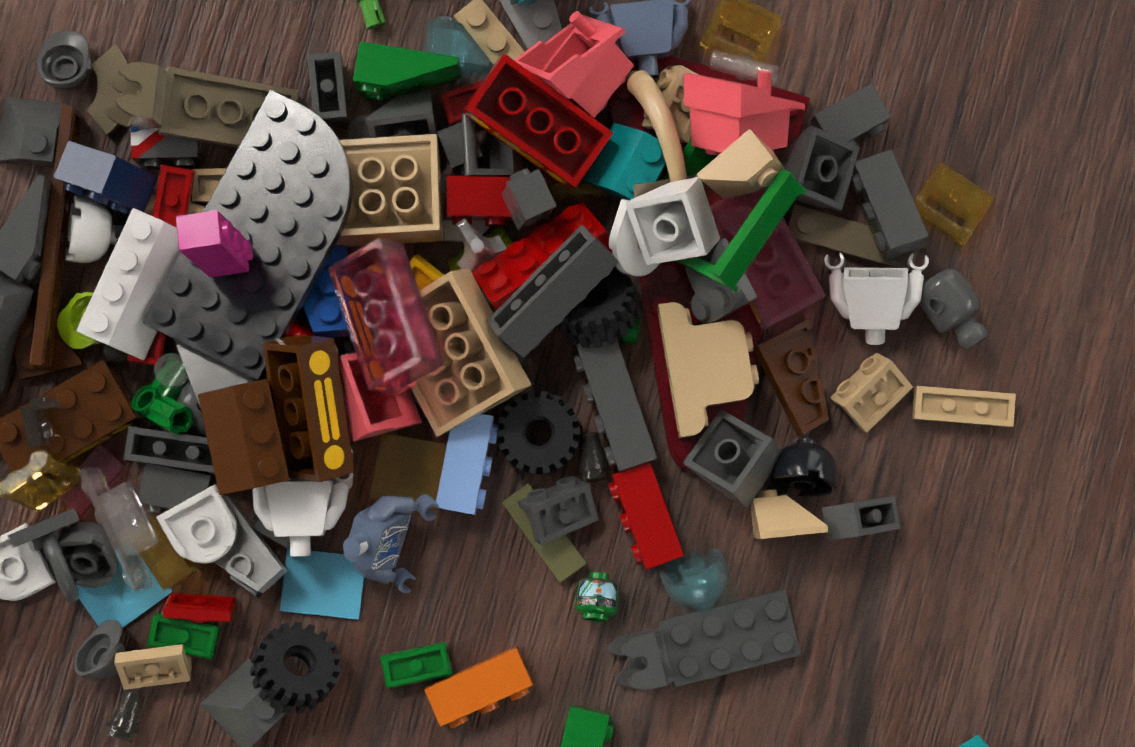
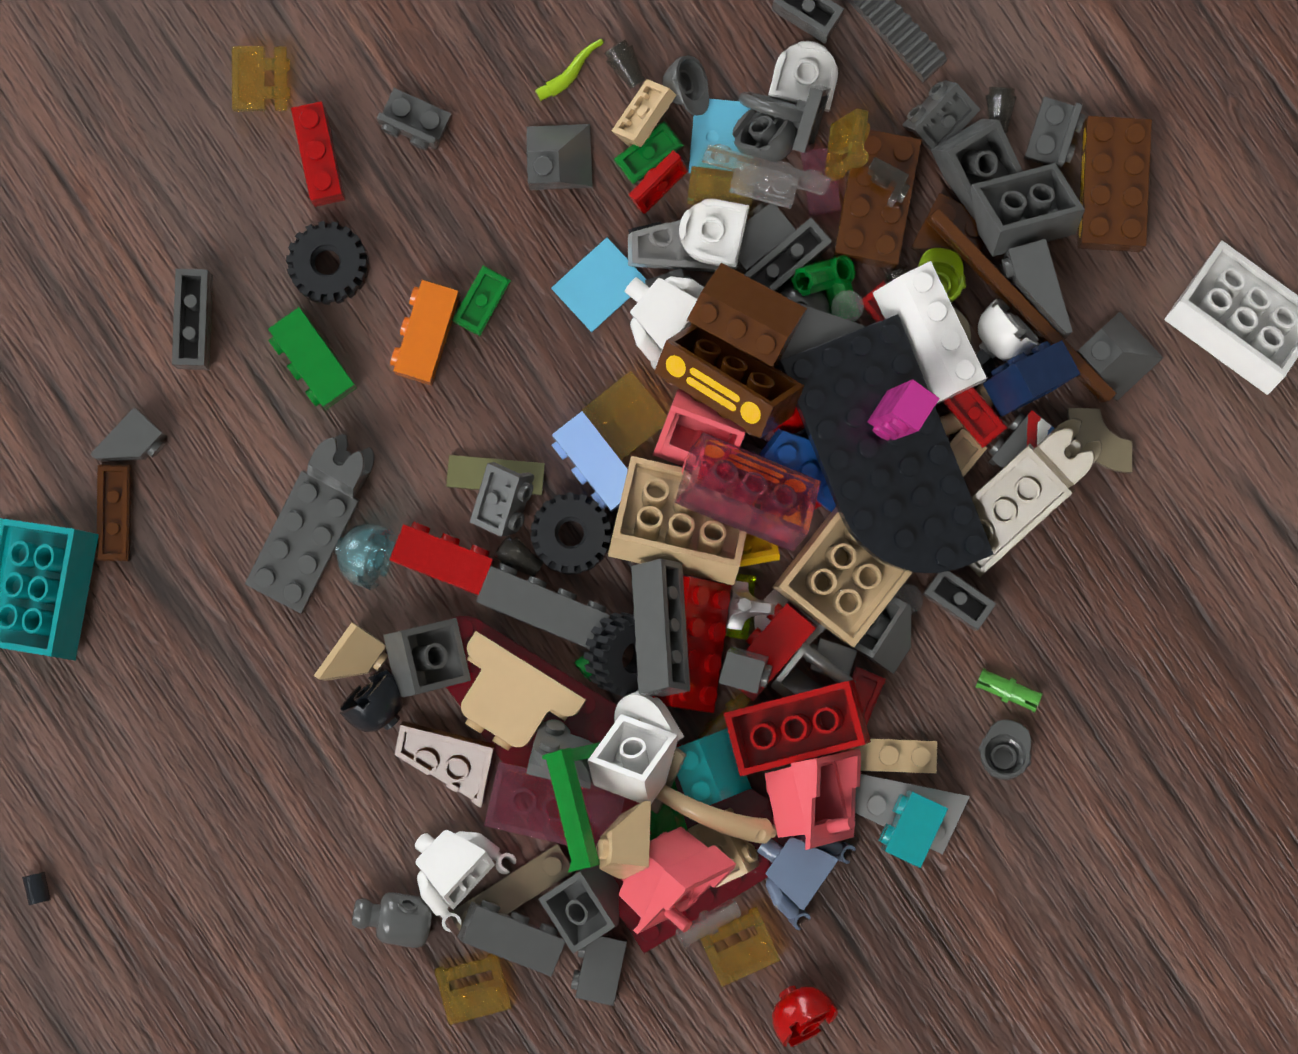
camera: 135 degrees right, 0 degrees up
(64, 60) = (1151, 424): dark grey hat -> none
(286, 687) = (554, 192): black tyre -> none
(379, 537) = (594, 352): sand blue torso -> none
(394, 71) = (929, 657): green slope -> none
(452, 39) = (913, 720): clear light blue slope -> none
(597, 597) = (415, 472): head -> none
(861, 518) = (302, 711): dark grey brick -> none
(871, 391) = (387, 804): tan bracket -> none
(964, 406) = (316, 863): tan plate -> none

